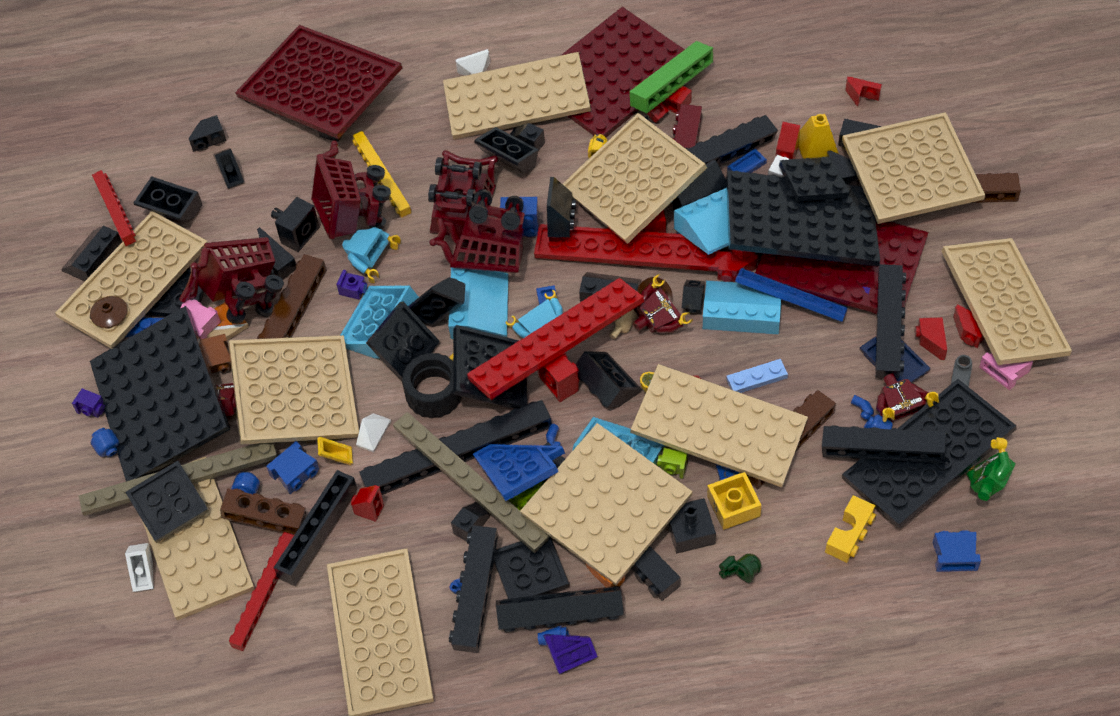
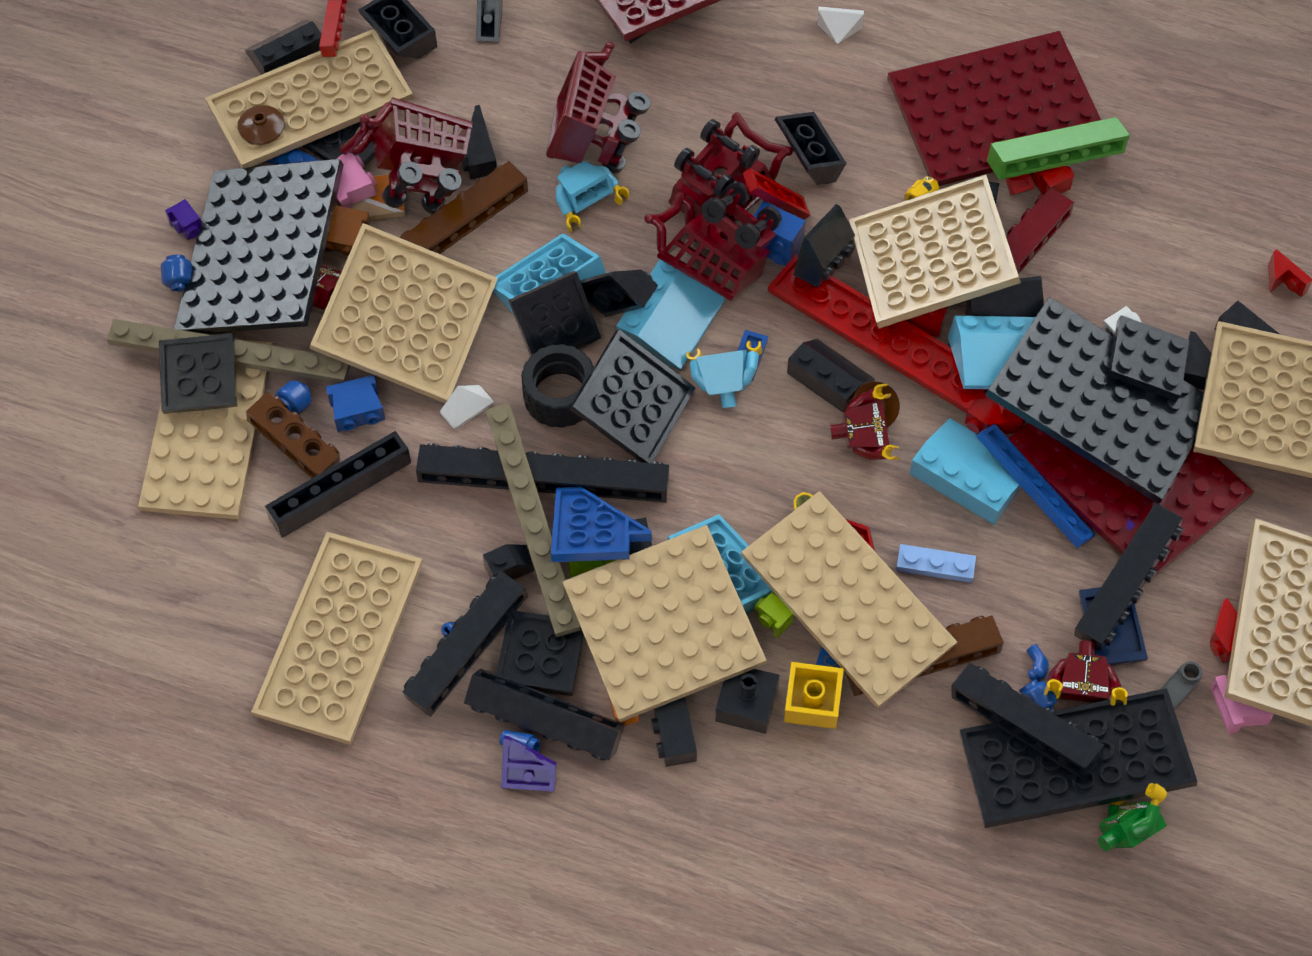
camera: 25 degrees right, 5 degrees up
(140, 566) = (134, 431): white slope -> none
(259, 597) = (234, 533): red piece -> none
(296, 223) = (521, 120): black brick -> none
(335, 450) = (409, 407): yellow slope -> none
(351, 285) = (542, 223): dark purple brick -> none
(368, 503) = (410, 486): red slope -> none
(371, 158) = (655, 94): yellow piece -> none
(503, 189) = (776, 194): none -> red plate
(516, 95) = (865, 84): tan plate -> none
(530, 134) = (849, 142): black slope -> none
(551, 434) = (655, 515): blue arm -> none
(555, 338) = (722, 401): red plate -> none
(560, 377) = (707, 442): red brick -> none
(606, 379) = (759, 476): black slope -> none
(623, 324) = (820, 418): tan piece -> none
(693, 295) = (920, 427): black slope -> none
(735, 141) = (1081, 265): black brick -> none
(744, 567) = (779, 778): dark green piece -> none
(748, 163) = (1088, 299): blue tile -> none
(788, 140) = (1150, 296): red slope -> none
(816, 138) = (1189, 309): yellow slope -> none
(844, 543) = (911, 812): yellow arch -> none
(932, 336) = (1173, 620): red slope -> none
(956, 551) = (1035, 890): blue hips -> none

